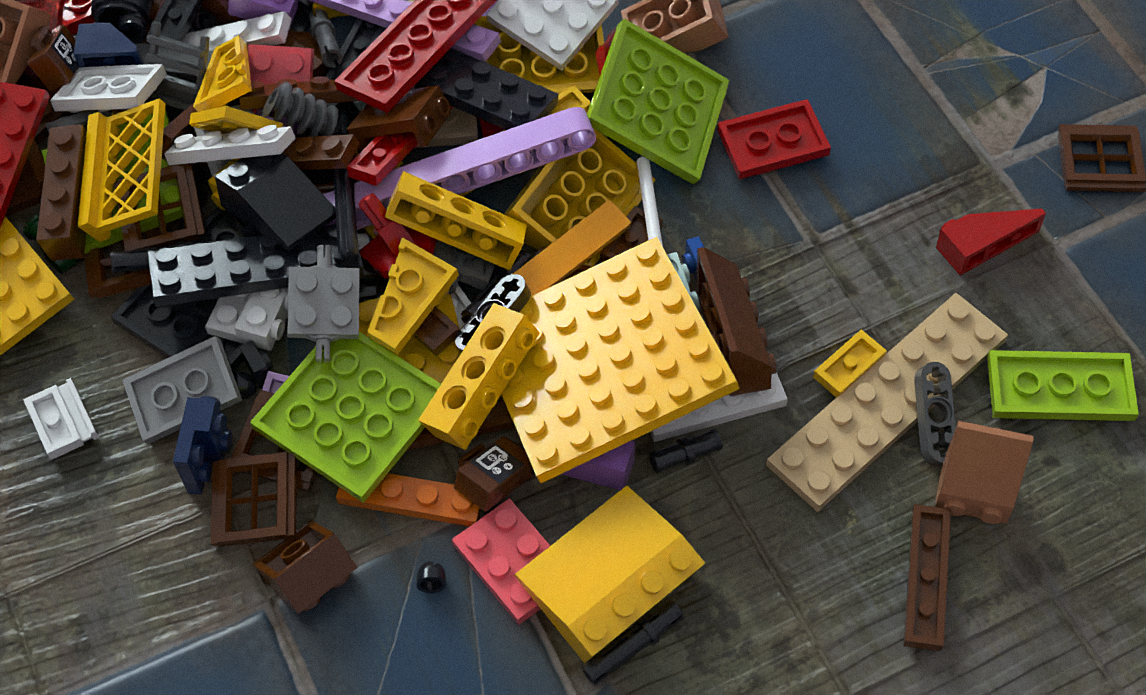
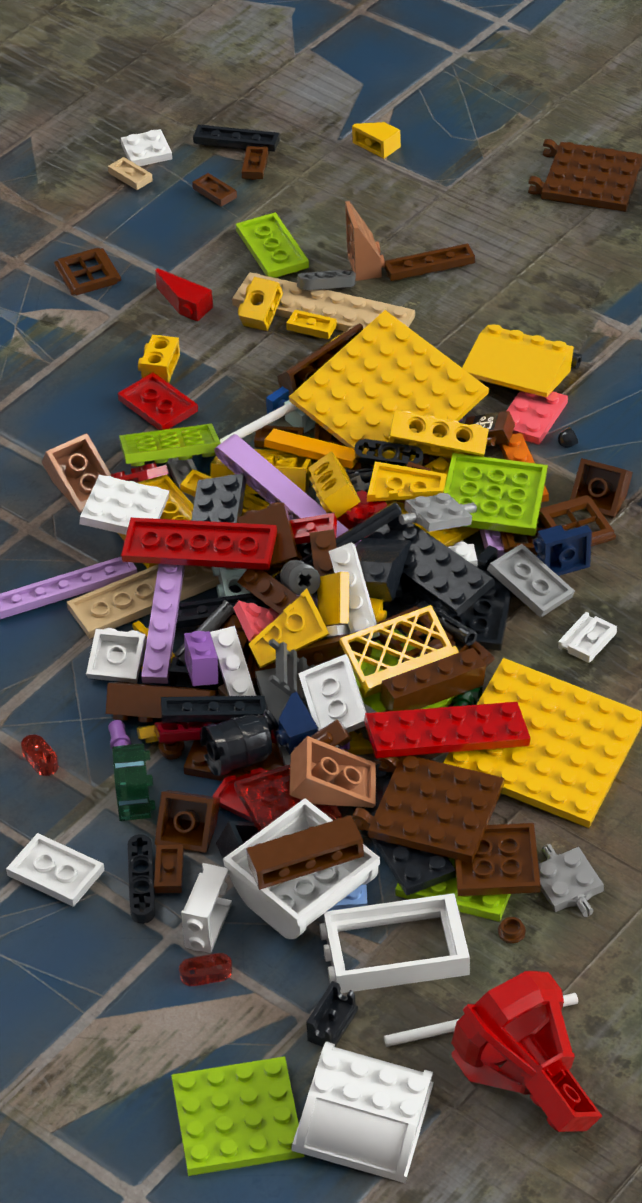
camera: 115 degrees left, 15 degrees down
(857, 166) = (160, 357): none -> yellow brick
(910, 306) = (260, 315): none -> yellow brick

